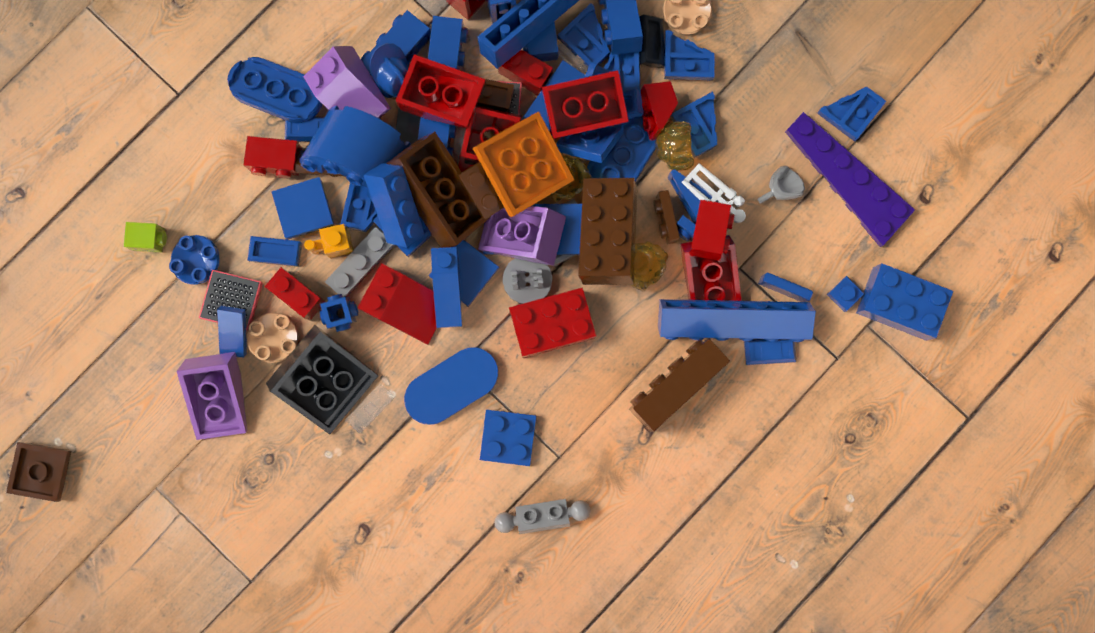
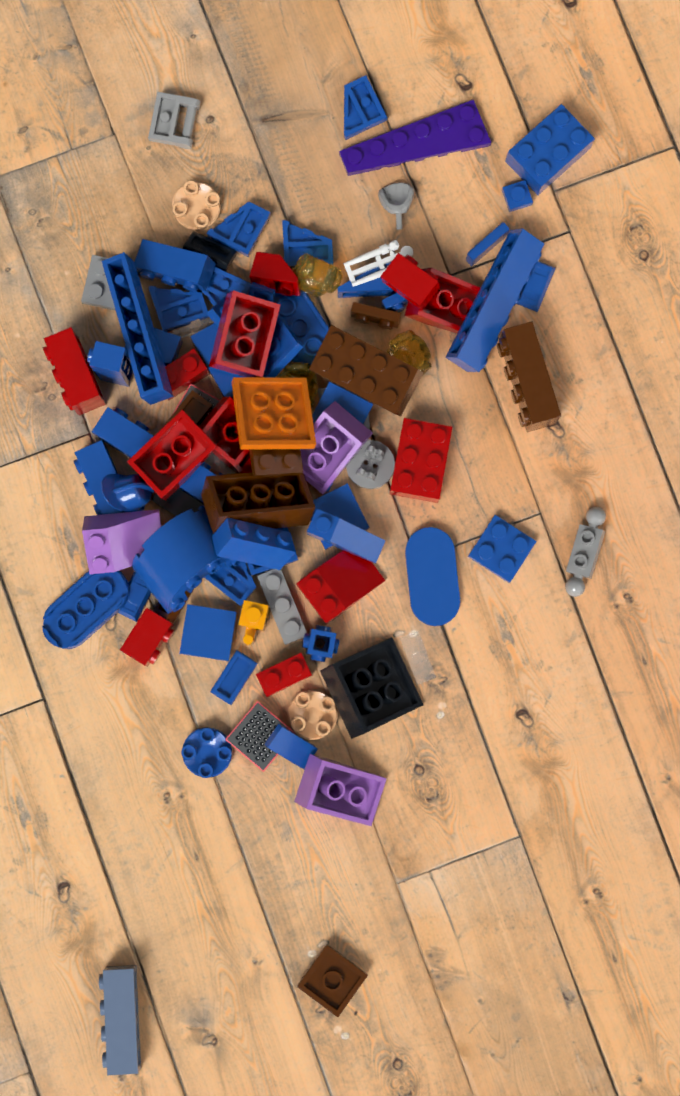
camera: 60 degrees left, 0 degrees up
(144, 237) = (165, 787): lime brick -> none

